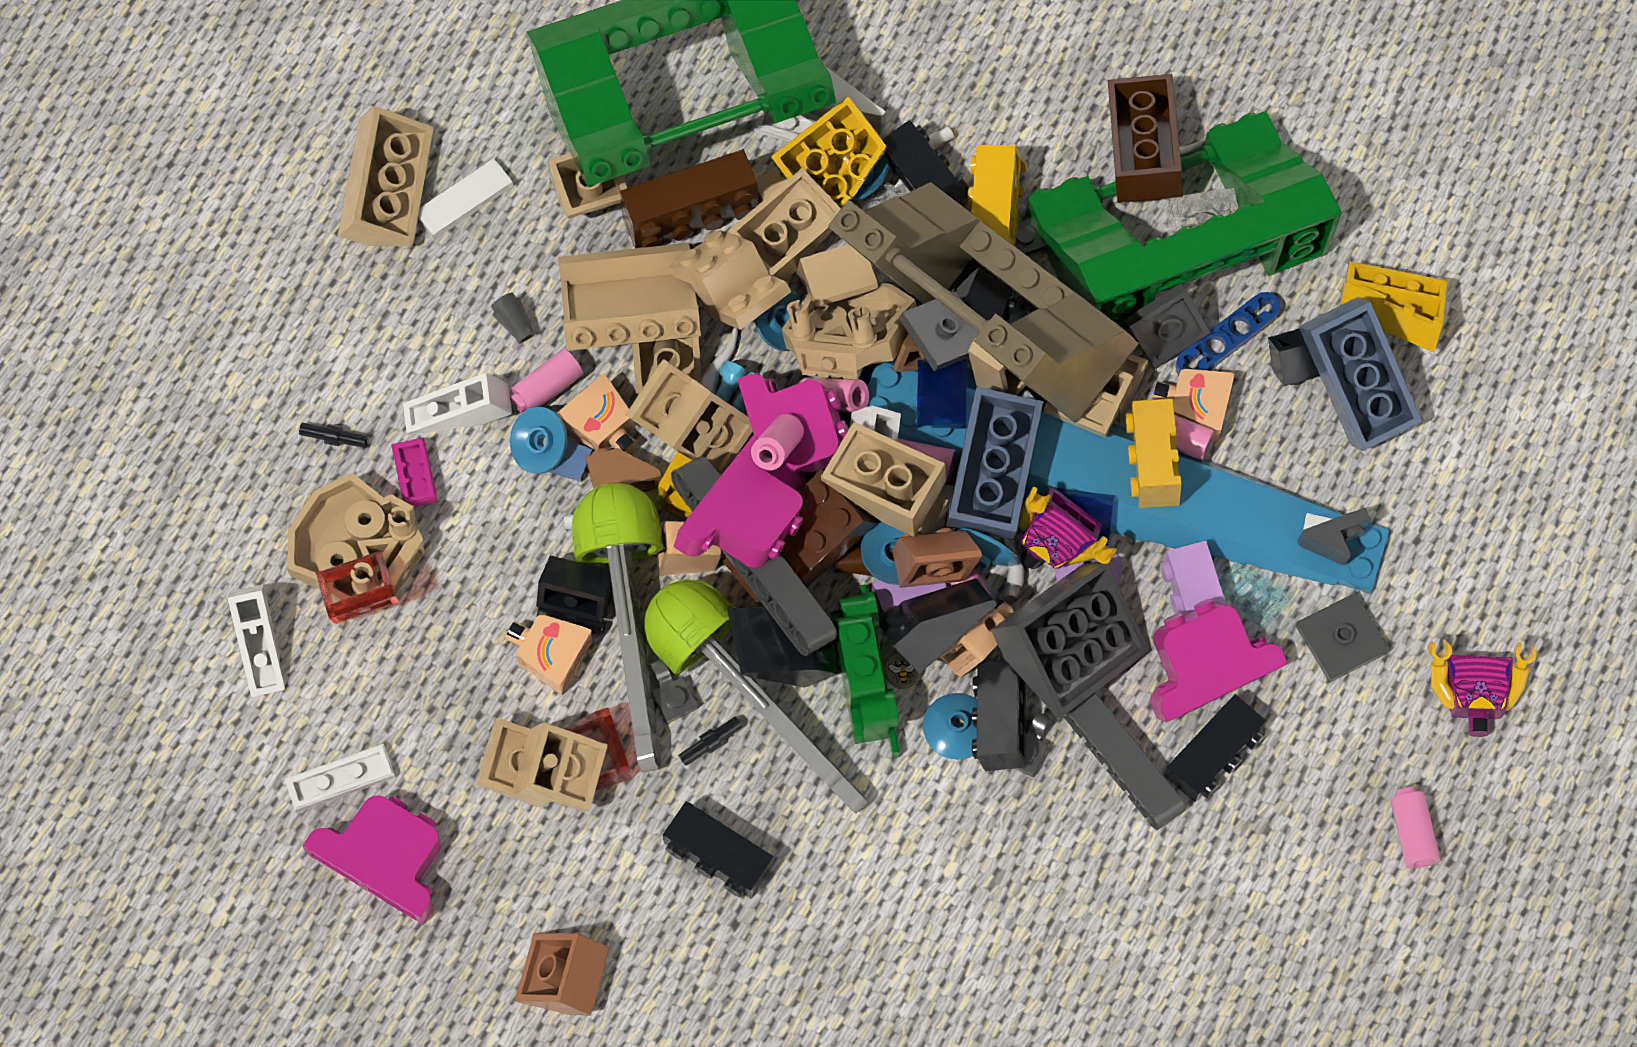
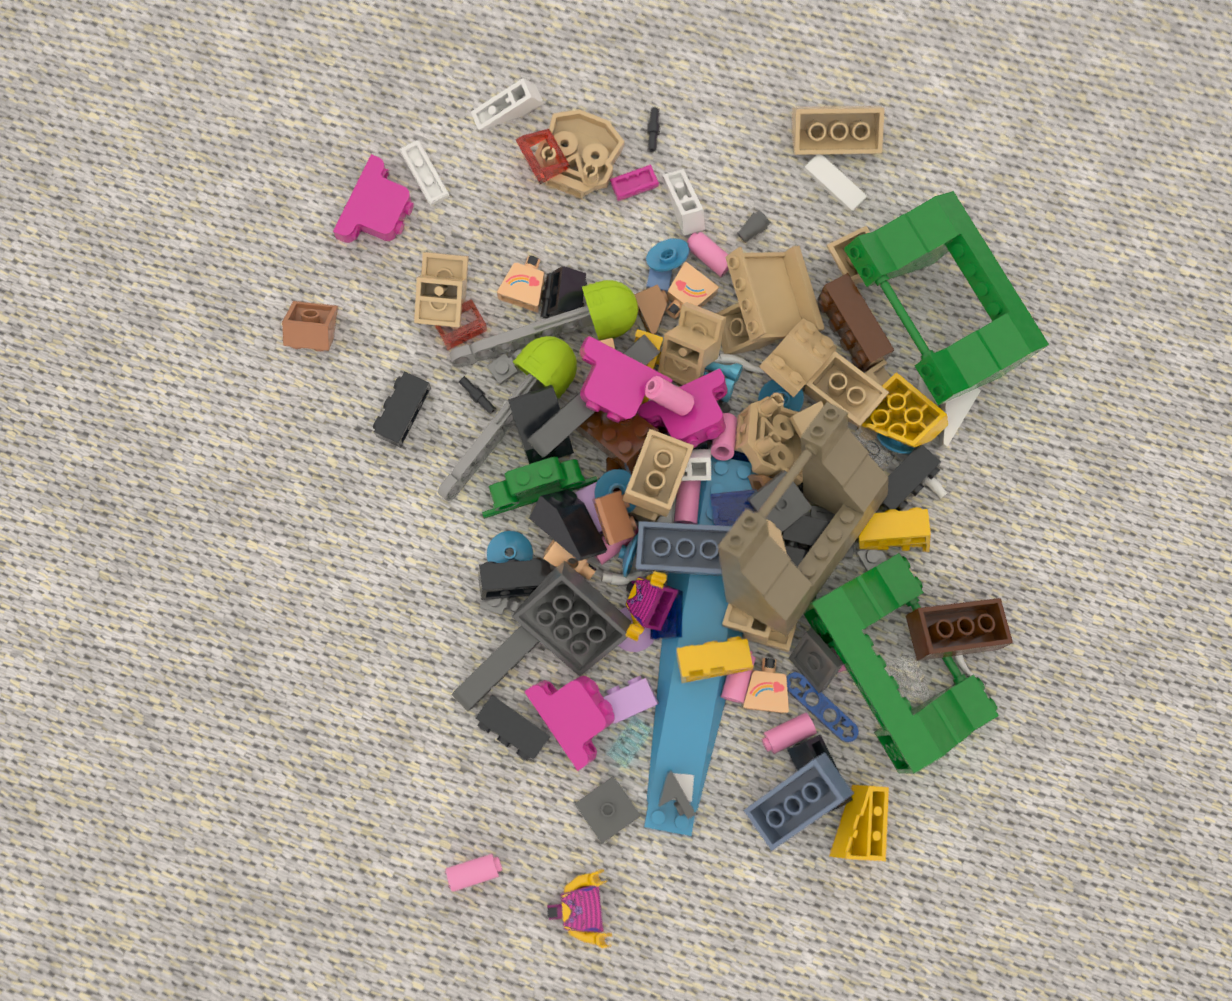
camera: 75 degrees right, 10 degrees up
(1261, 381) = (788, 733): none -> bright pink brick

